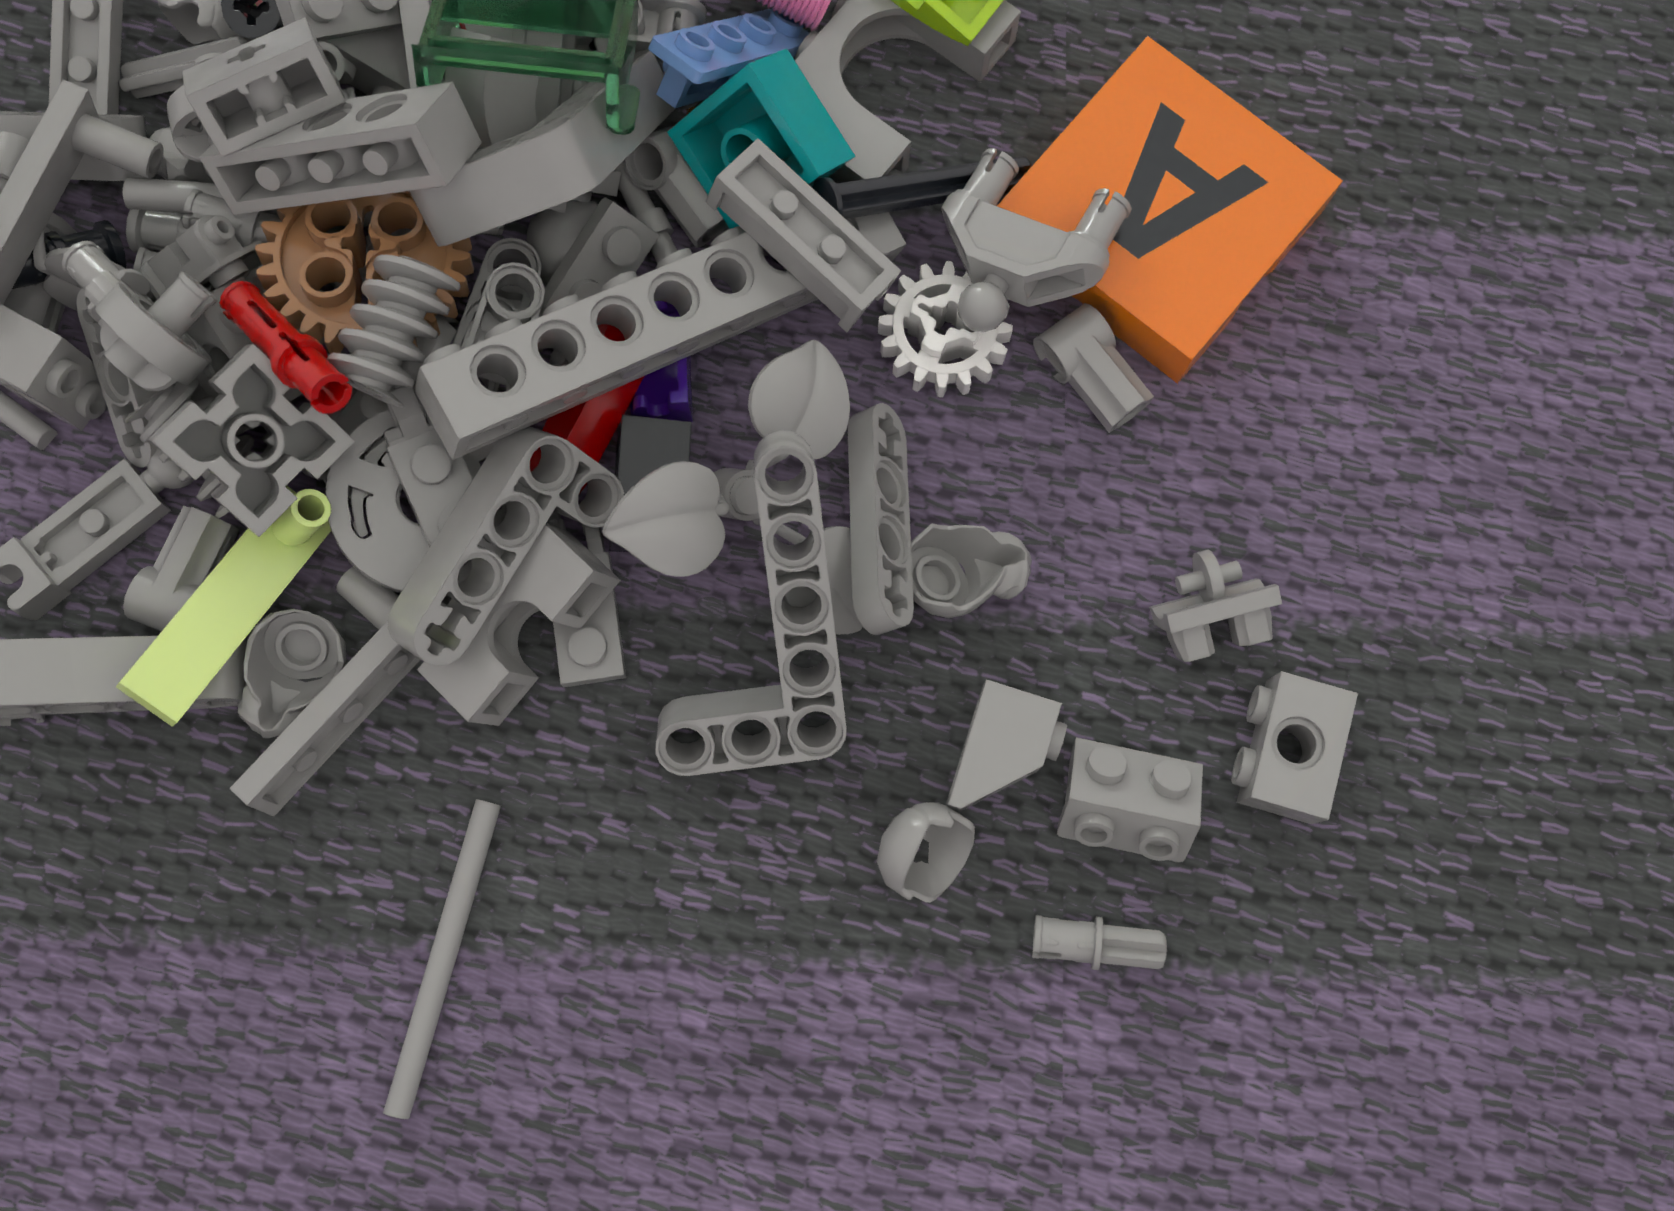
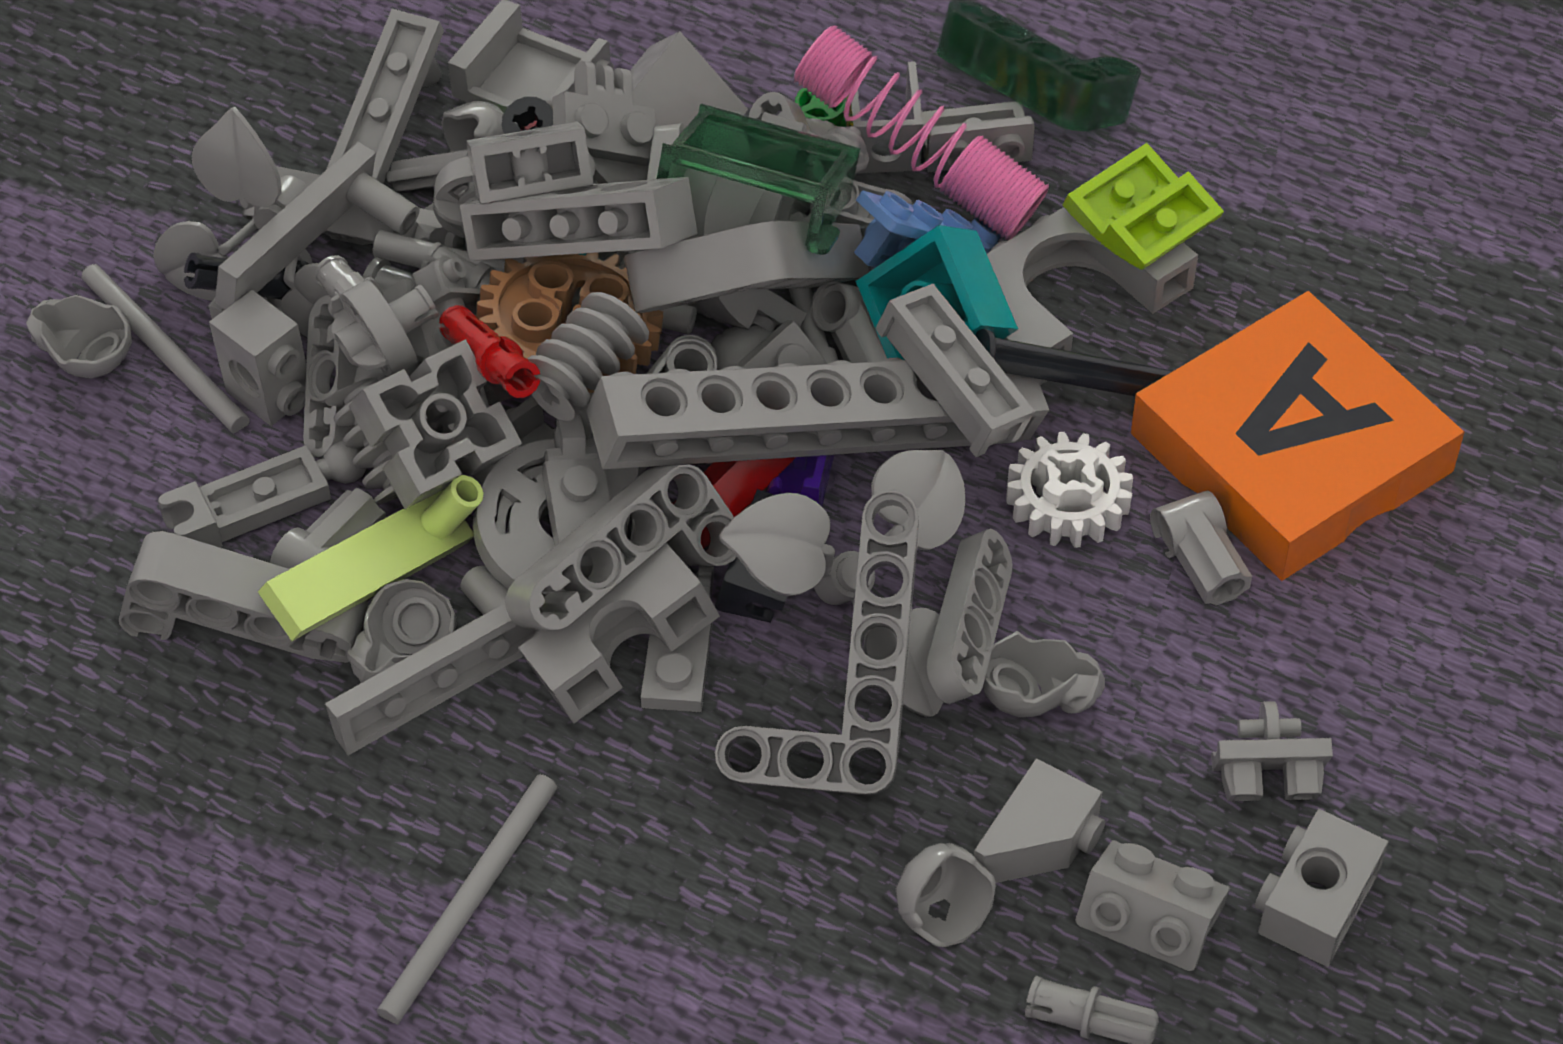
camera: 15 degrees right, 25 degrees down
(1020, 256) = (1151, 429): light grey connector -> none

